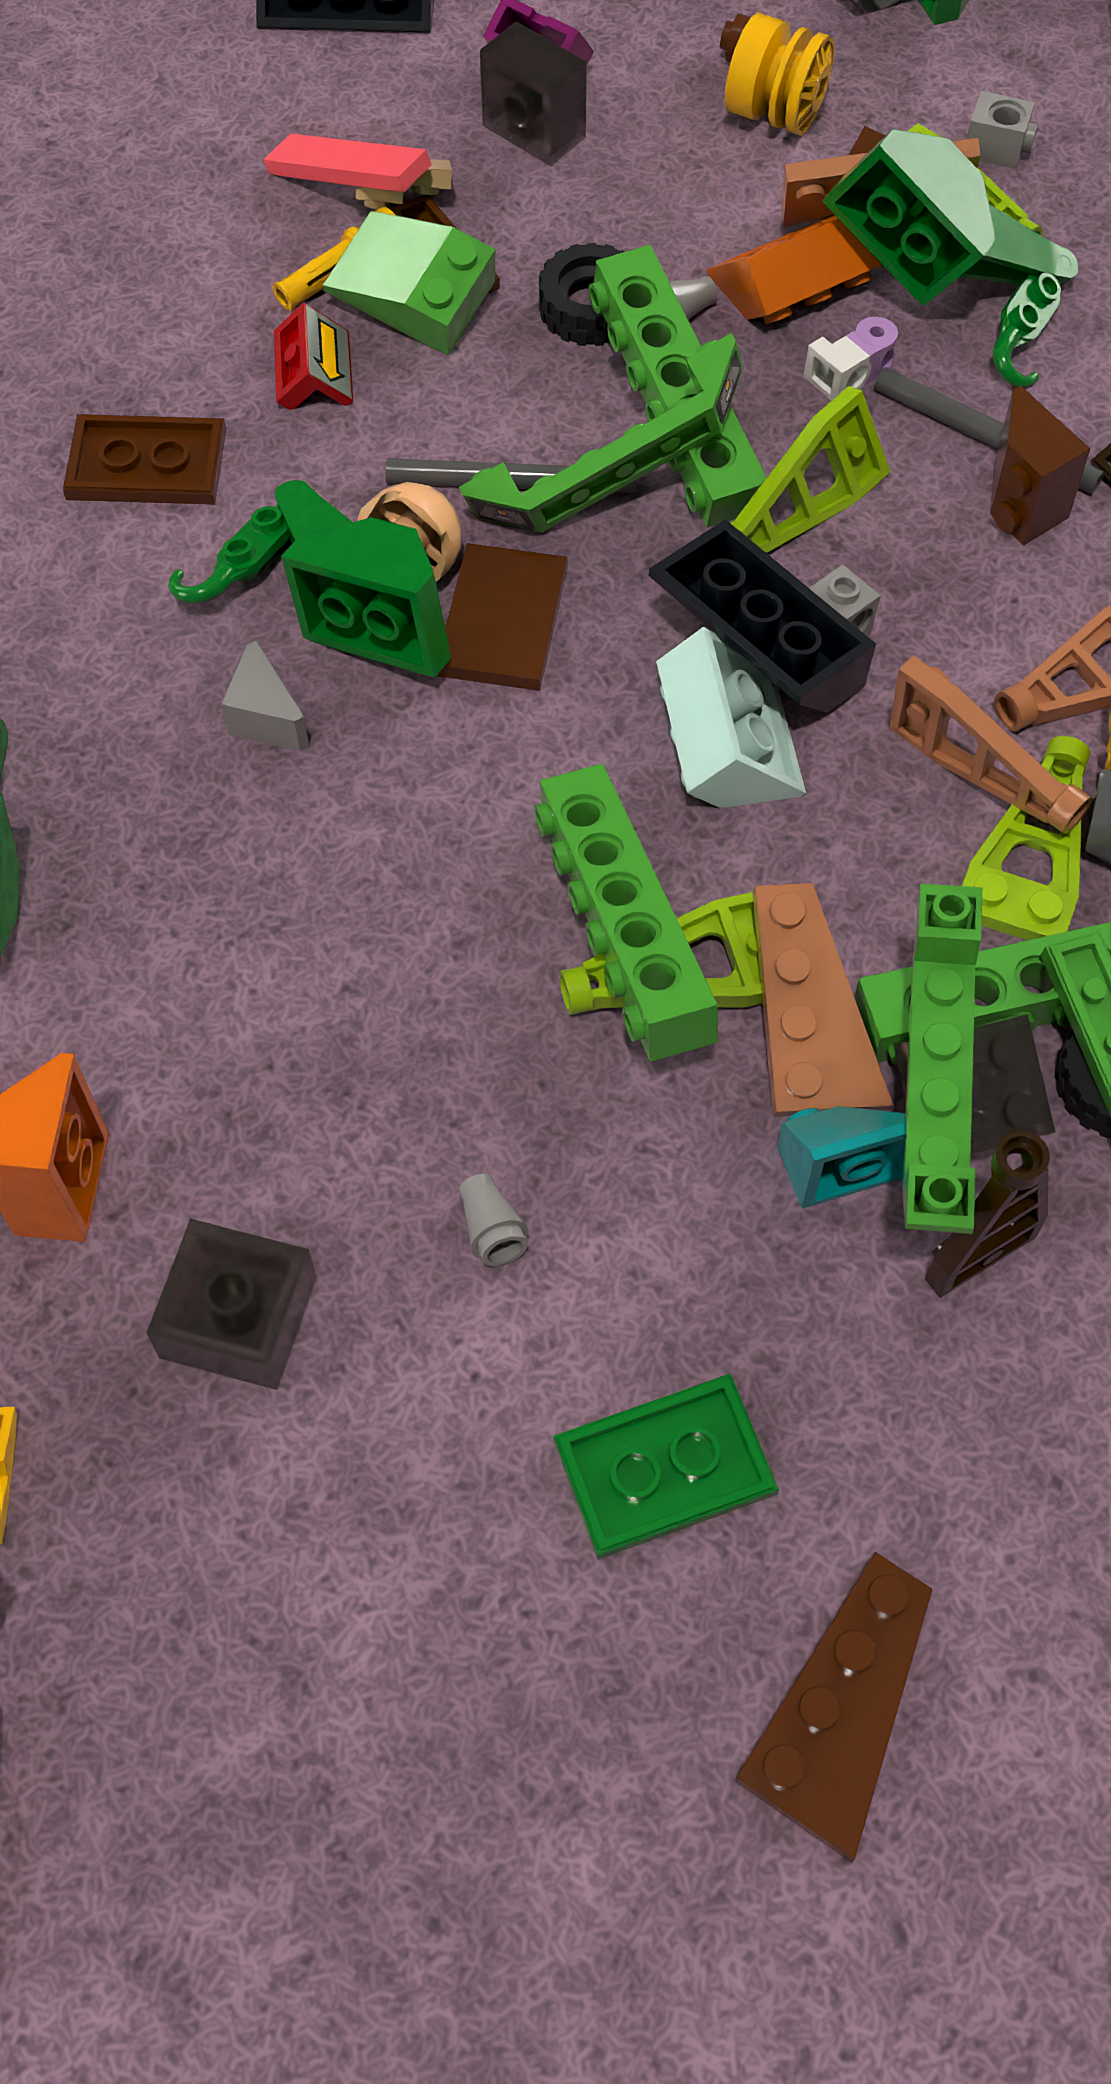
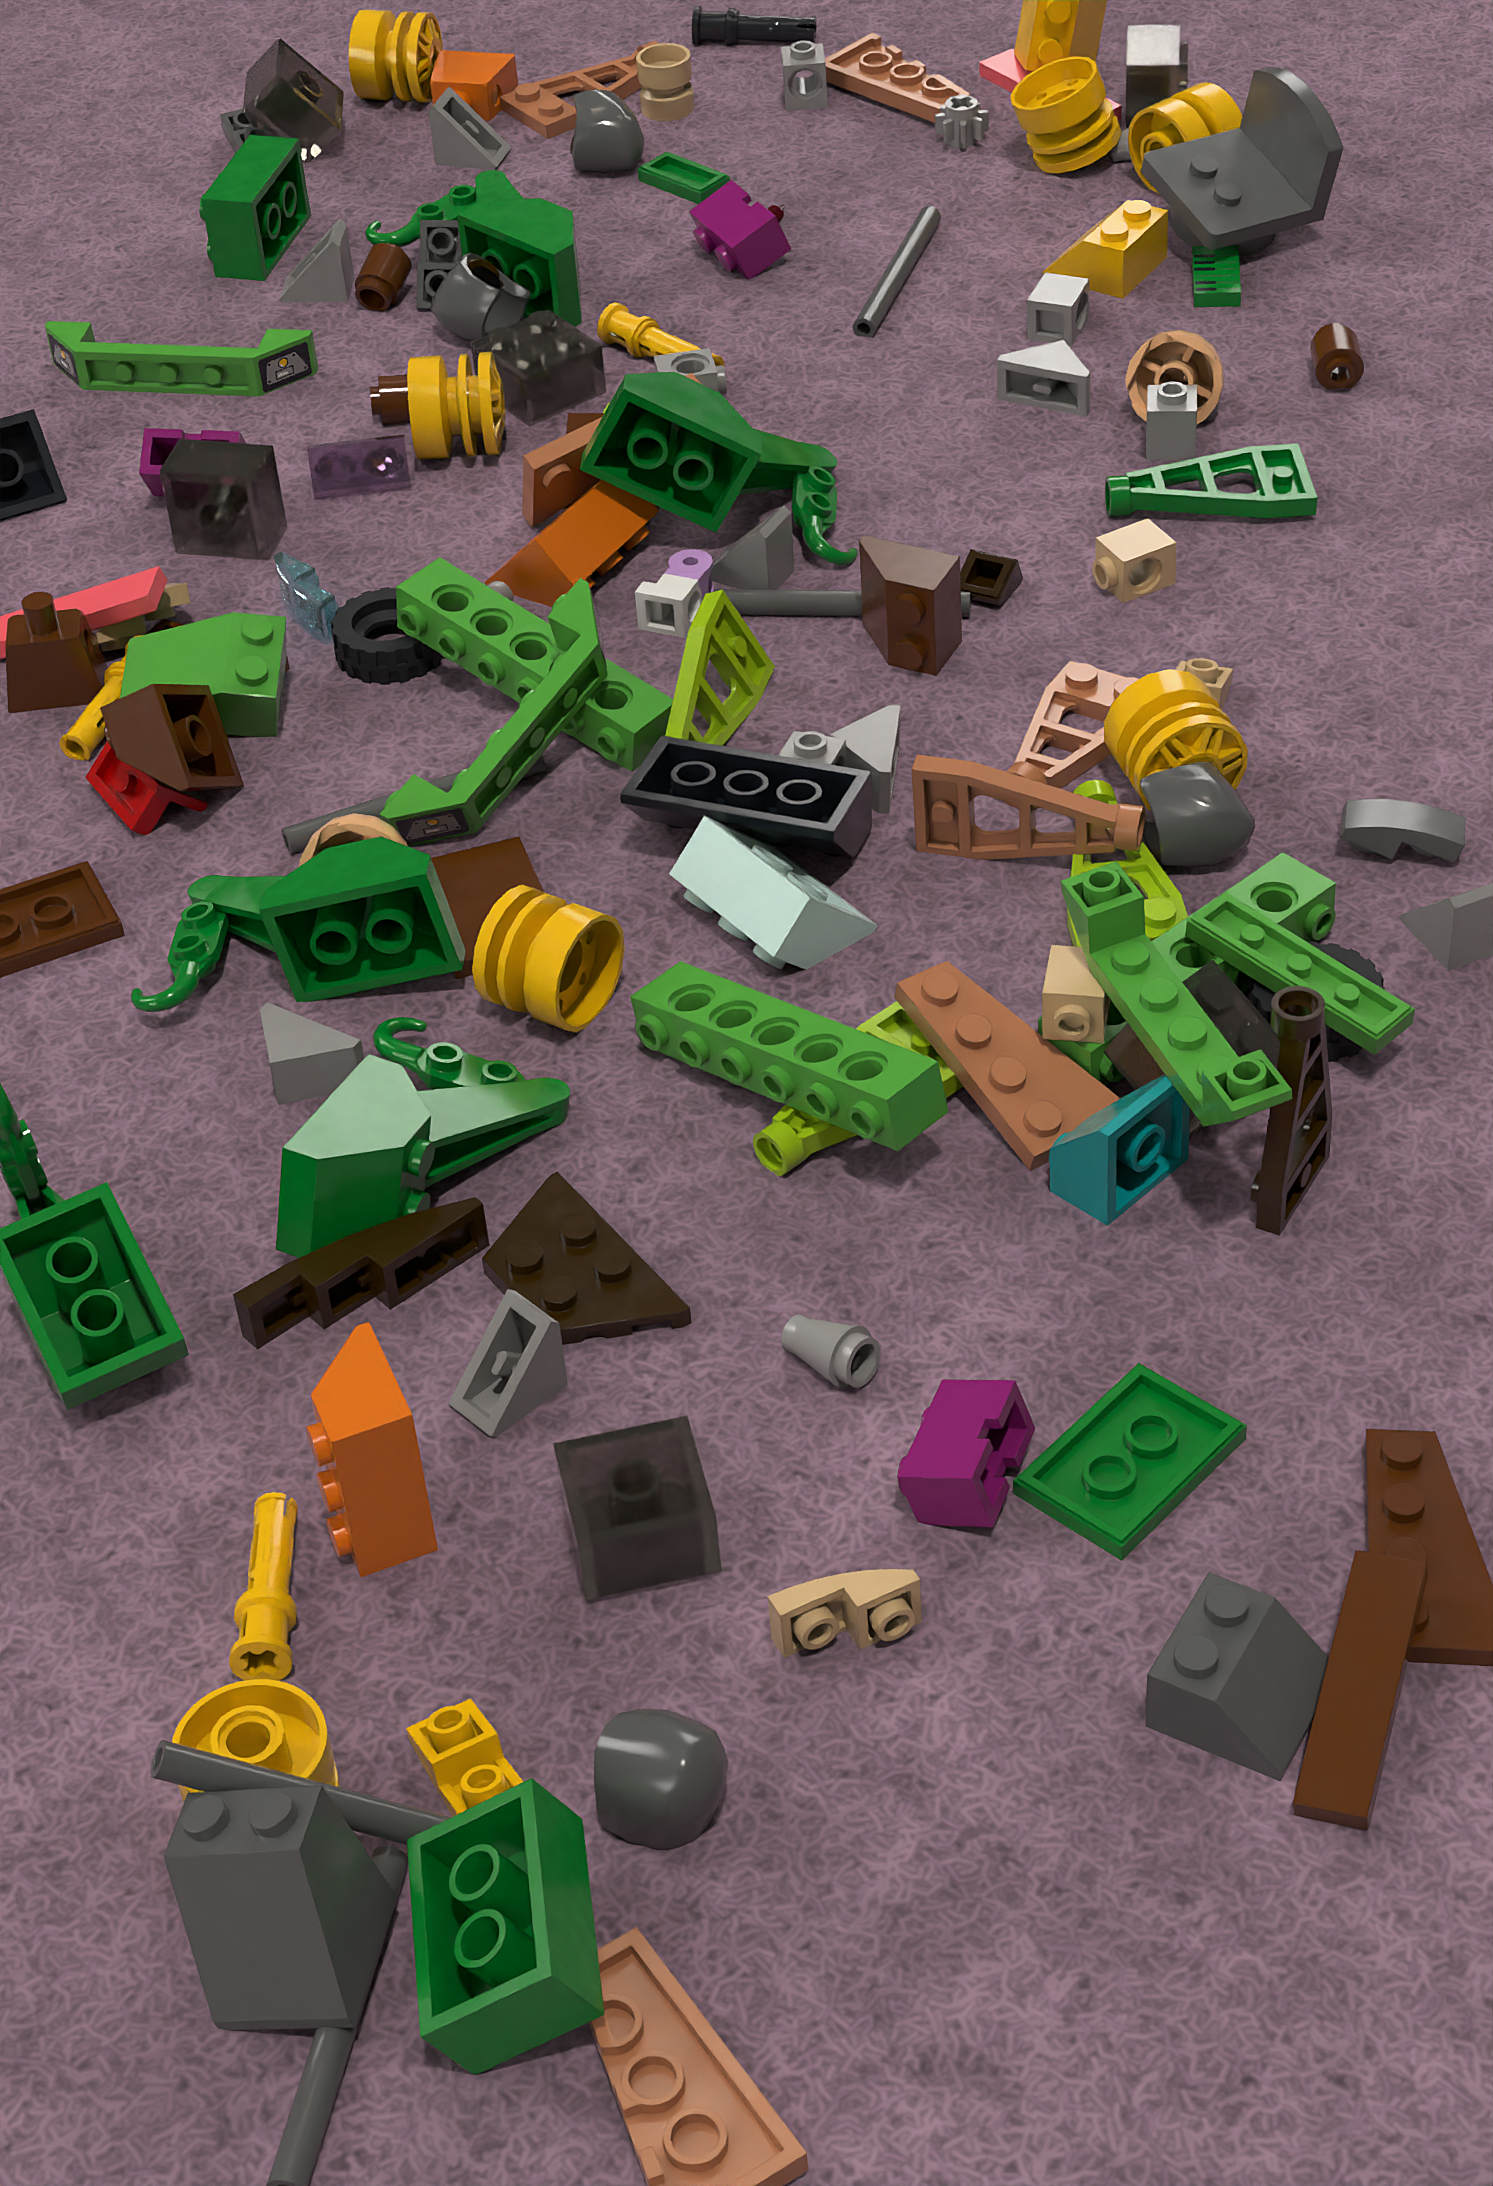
camera: 25 degrees left, 20 degrees down
(90, 1576) = (658, 1777): none -> dark grey piece
(203, 943) = (378, 1262): none -> dark brown slope
(227, 1106) = (512, 1368): none -> light grey slope
(245, 834) = (385, 1142): none -> green slope
(305, 199) = (51, 657): none -> reddish brown torso
(341, 336) = (173, 737): none -> reddish brown slope
(346, 1027) = (579, 1269): none -> dark brown wing
(356, 1500) = (865, 1603): none -> tan slope
(498, 706) = (548, 958): none -> yellow wheel
(523, 1392) = (963, 1452): none -> magenta brick
(548, 209) = (304, 599): none -> clear light blue slope
(605, 1753) = (1237, 1678): none -> dark grey slope
(672, 100) = (359, 465): none -> clear purple tile
(694, 1824) = (1361, 1690): none -> reddish brown tile
(883, 58) = (544, 366): none -> clear smoke brick
(884, 982) = (1072, 999): none -> tan brick
(906, 613) = (875, 747): none -> light grey slope
(942, 350) = (759, 558): none -> light grey slope
(995, 63) = (640, 334): none -> yellow pin

